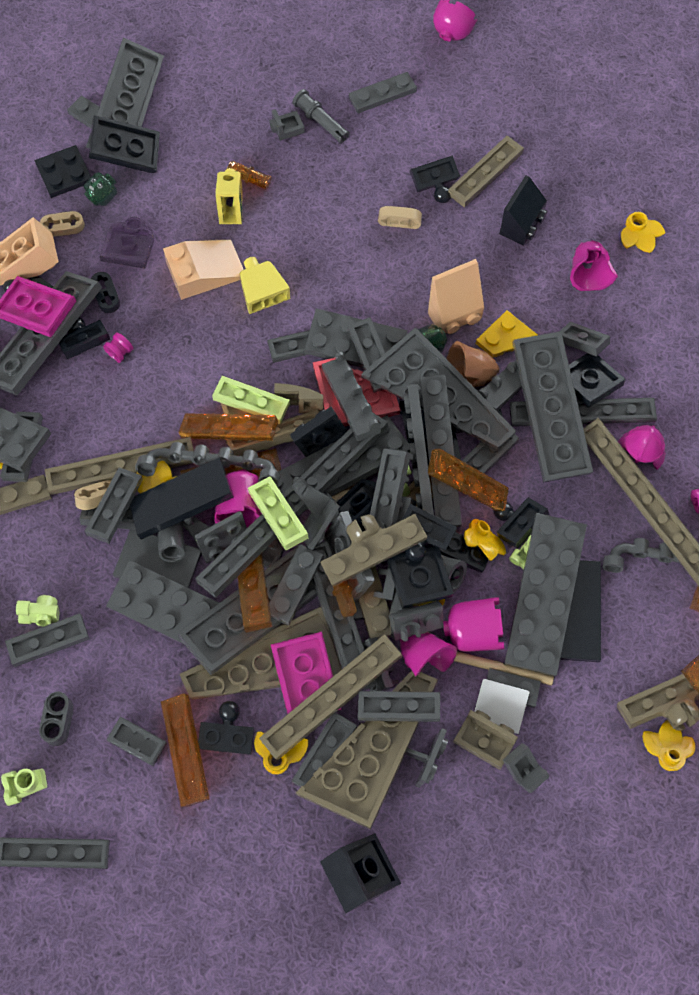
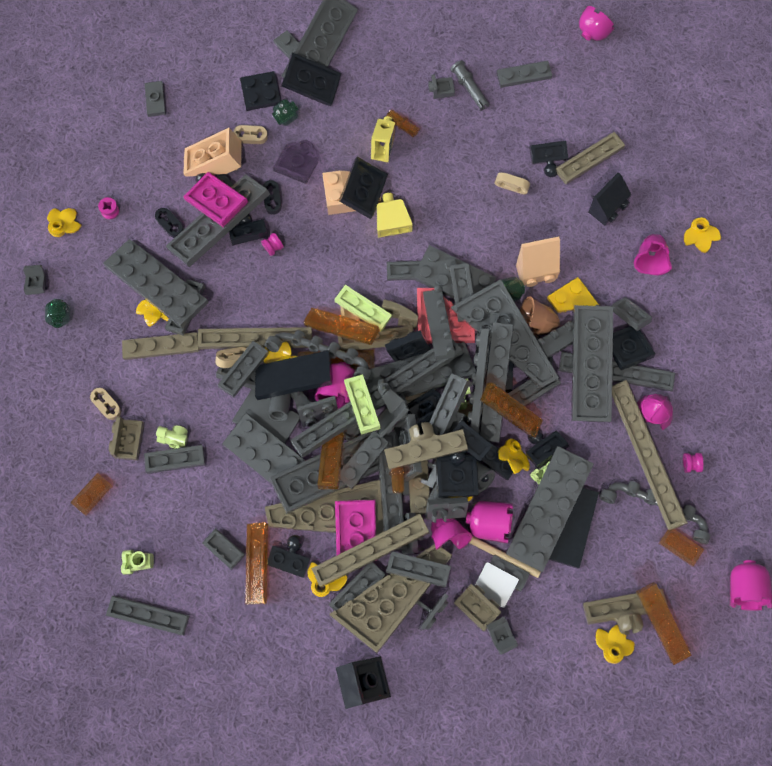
camera: 15 degrees right, 5 degrees up
(56, 719) = (172, 520): dark grey beam -> none
(218, 257) = (363, 187): none -> black tile

